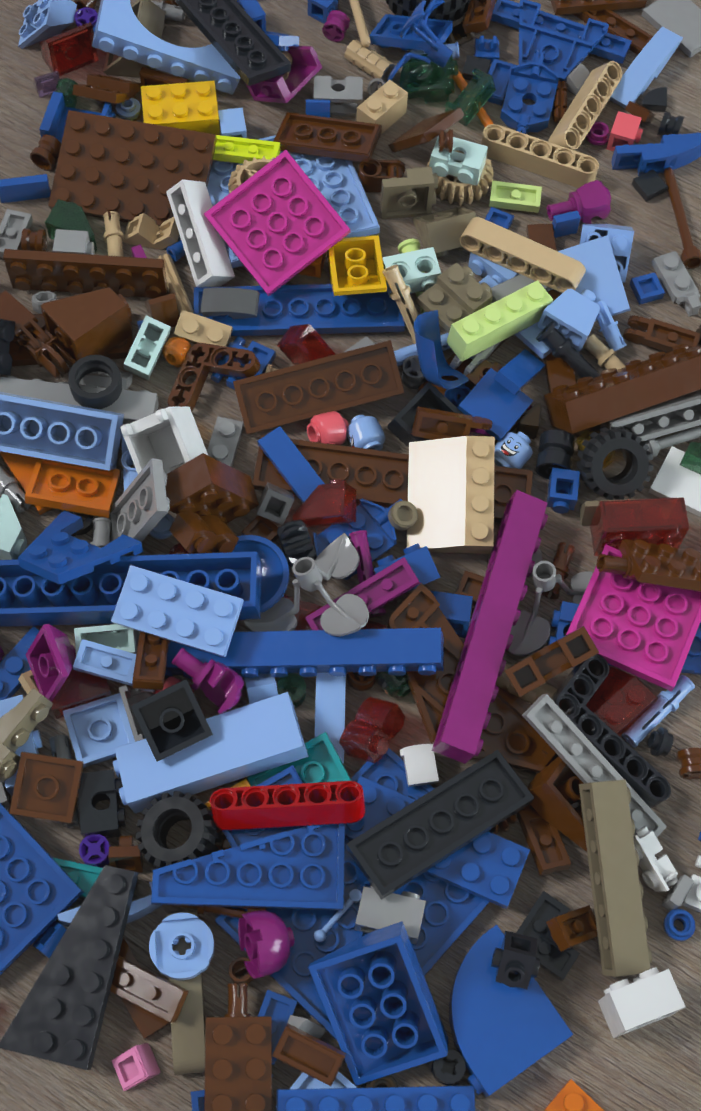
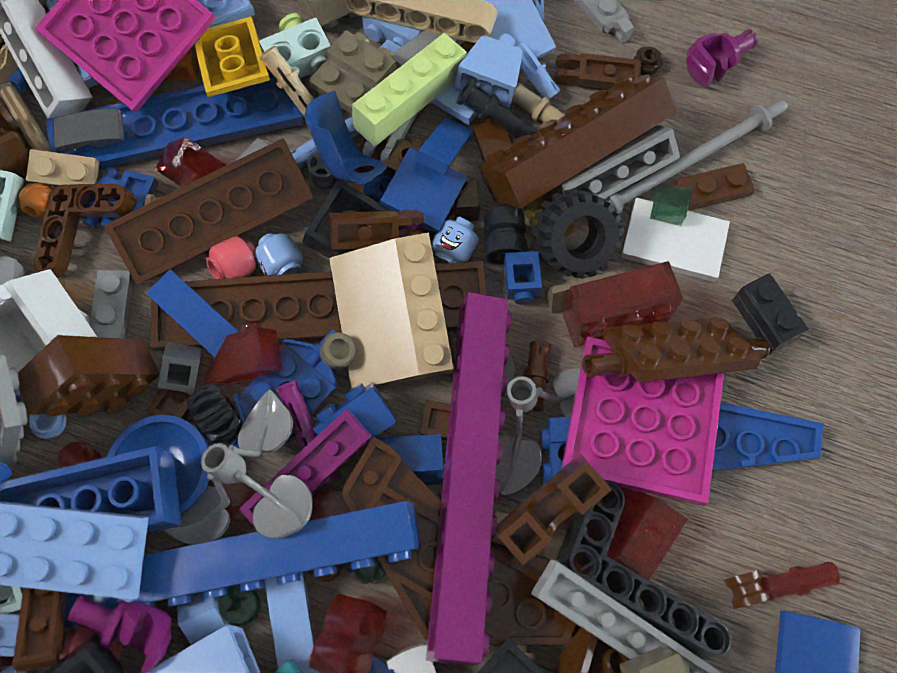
camera: 10 degrees left, 5 degrees up
(203, 533) = (88, 433): reddish brown brick -> none
(647, 288) = (569, 20): blue tile -> none
(660, 742) = (702, 570): black plate -> none
(666, 702) = (698, 518): light blue pin -> none

